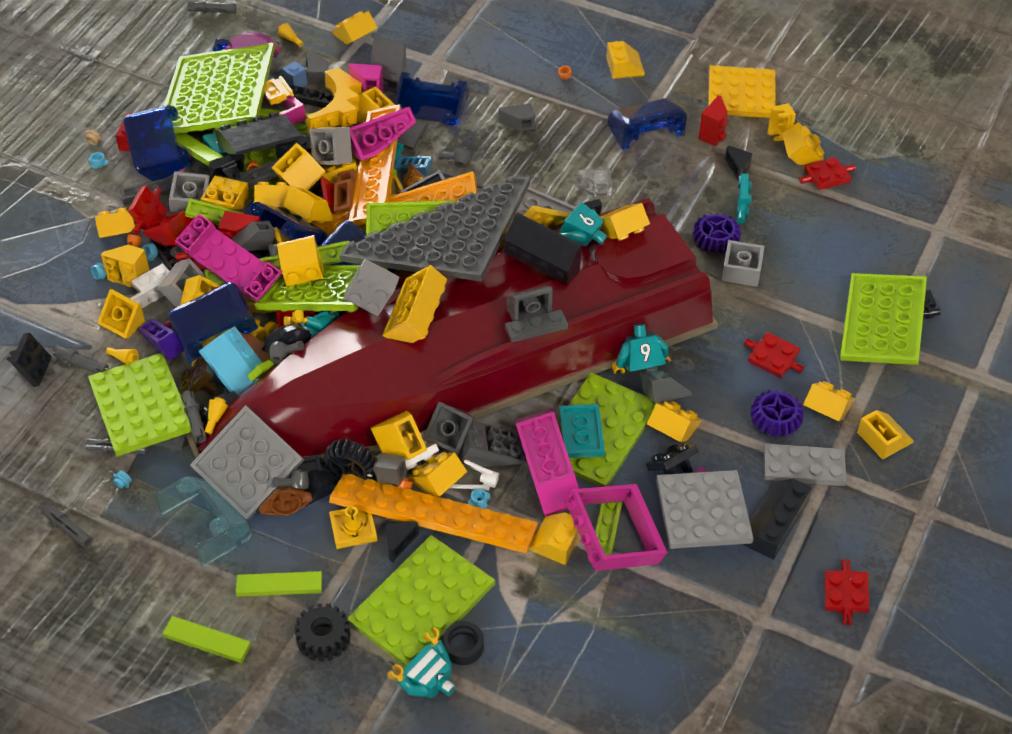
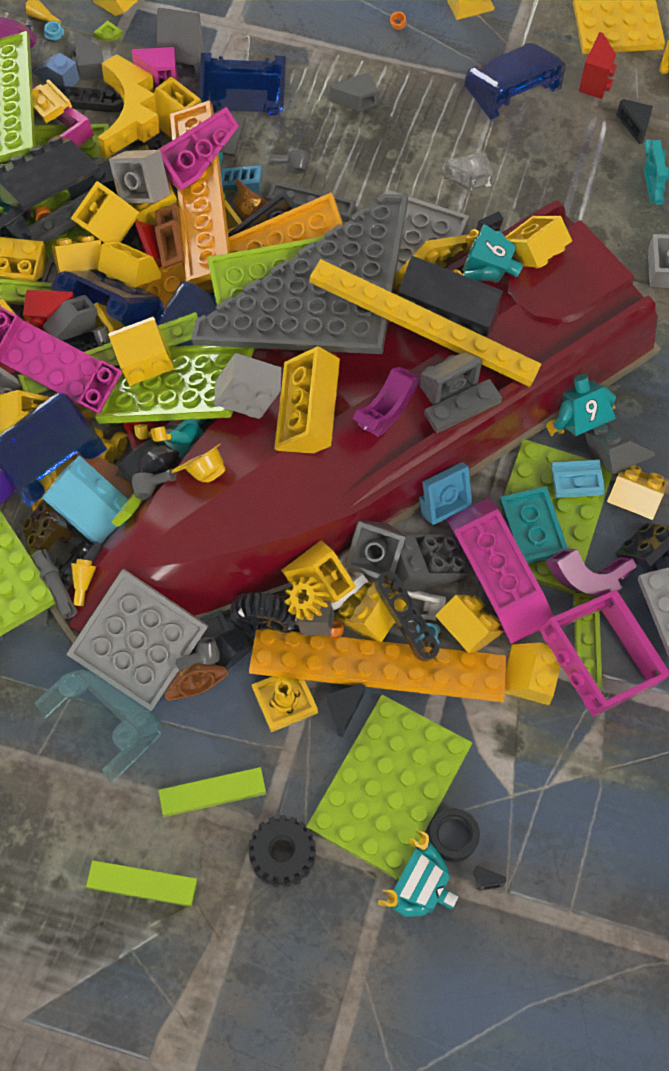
camera: 10 degrees left, 15 degrees up
(295, 48) = (53, 31): none -> medium azure plate
(326, 339) = (204, 467): none -> yellow piece
(337, 54) = (108, 32): none -> lime tile
(384, 448) = (297, 598): none -> yellow gear
(463, 476) = (410, 614): none -> black beam
(478, 315) = (389, 402): none -> magenta arch
(483, 678) = (488, 879): none -> black slope
(513, 492) = (469, 622): none -> yellow slope
(516, 397) = (446, 494): none -> dark azure plate
(520, 263) = (424, 322): none -> yellow plate
(607, 472) = (572, 573): none -> arch
(625, 403) = (577, 478): none -> medium azure plate
(714, 231) = (631, 222): dark purple gear -> none

